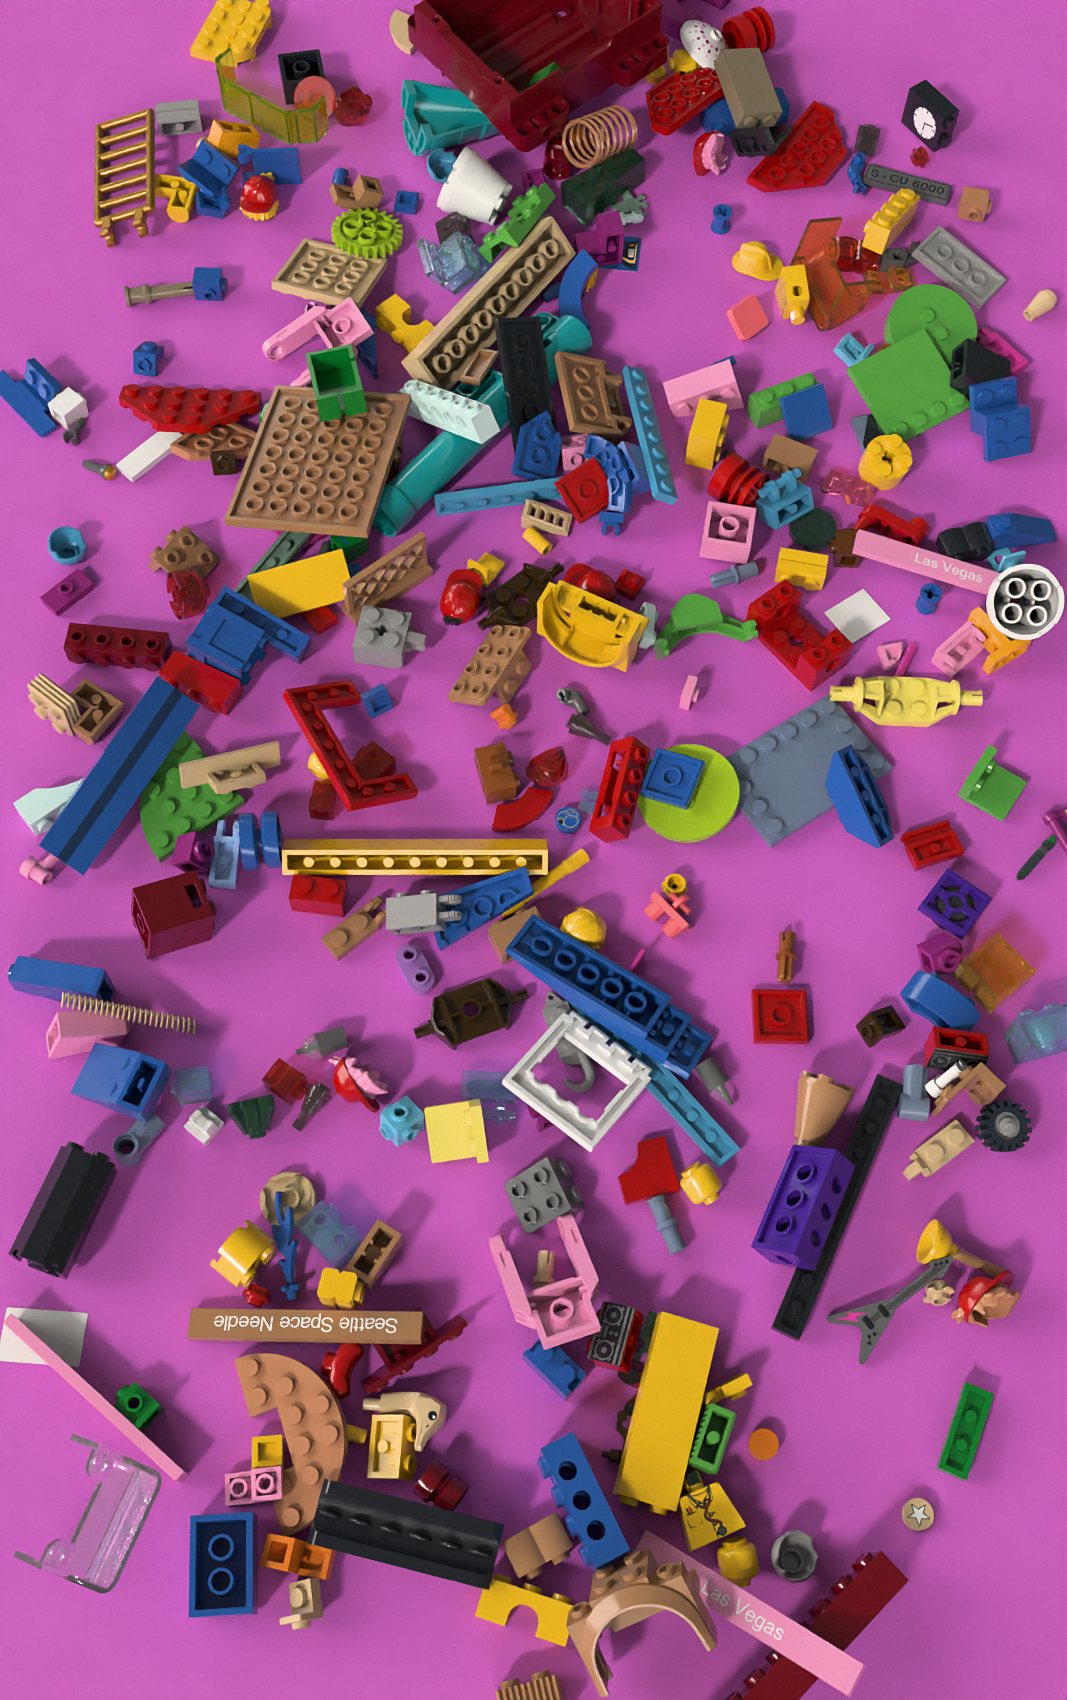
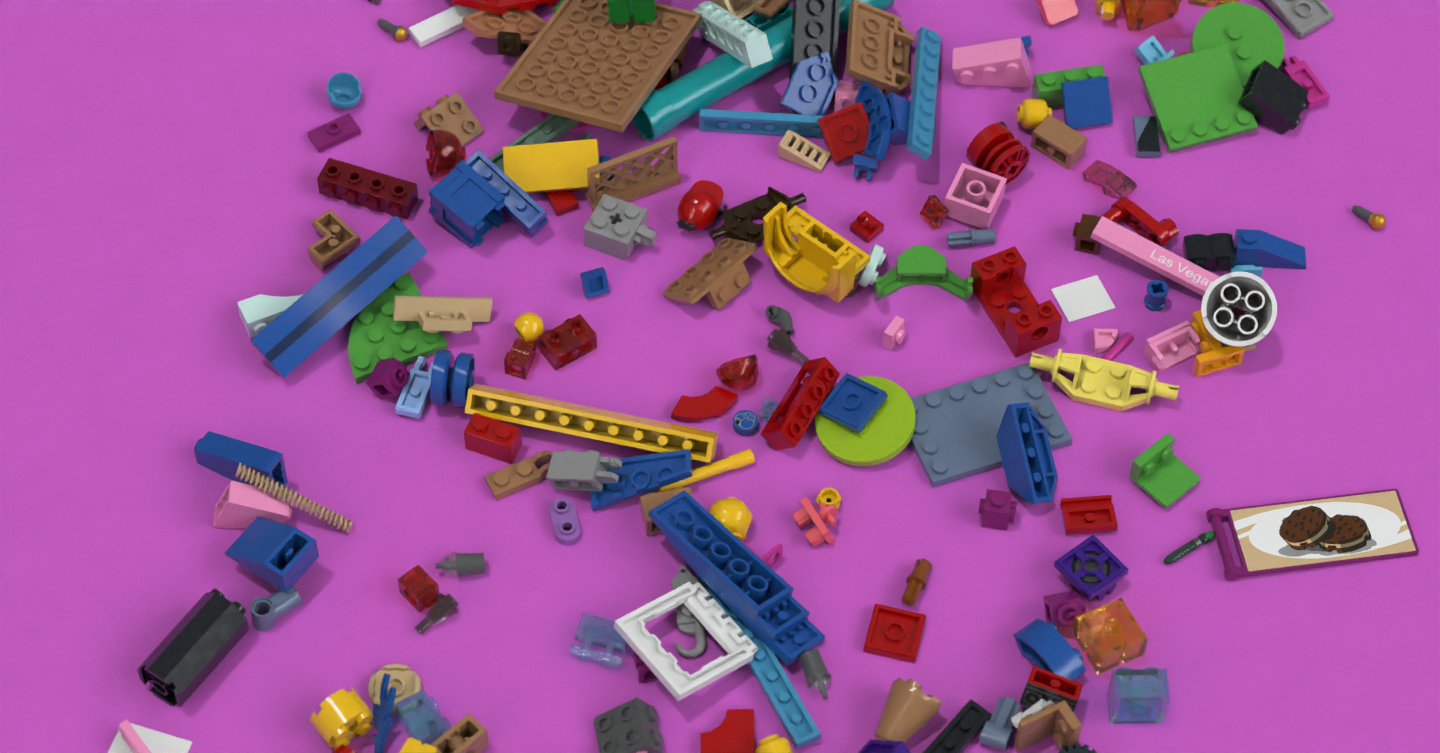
camera: 15 degrees right, 10 degrees down
(38, 870) = (245, 366): bright pink brick -> none
(54, 704) = (296, 225): tan brick -> none
(172, 914) = (355, 424): dark red container -> none
(192, 1085) = (335, 574): clear light blue brick -> none
(202, 682) = (437, 234): red brick -> none
(204, 1125) = (336, 609): white tile -> none
(253, 1115) = (382, 608): clear green brick -> none
(307, 706) = (526, 276): red plate -> none
(352, 546) = (609, 140): green brick -> none
(357, 1083) = (483, 602): hair -> none
(401, 1121) = (514, 642): medium azure brick -> none
(455, 1027) = (586, 575): dark brown plate -> none
(456, 1131) = (561, 661): light yellow bracket -> none
(487, 567) = (732, 186): yellow bracket -> none
(495, 773) = (688, 367): dark orange brick -> none
(504, 716) = (711, 319): orange plate -> none
(540, 543) = (789, 170): yellow piece -> none
(593, 581) = (830, 215): red hair -> none
(691, 556) = (934, 212): none -> clear red tile
(707, 434) = (980, 102): yellow brick -> none
(757, 434) = (1032, 112): none -> yellow head
(784, 500) = (1041, 180): dark azure brick -> none
(801, 568) = (1039, 243): yellow brick -> none
(813, 529) = (1061, 209): clear green tile -> none
(844, 860) = (997, 509): none -> magenta brick
(880, 1025) = (987, 658): dark brown bracket -> none
(885, 462) = (1151, 161): yellow brick -> none
(1000, 418) = (1280, 143): blue bracket -> none
(1041, 304) = (1360, 45): tan cone -> none

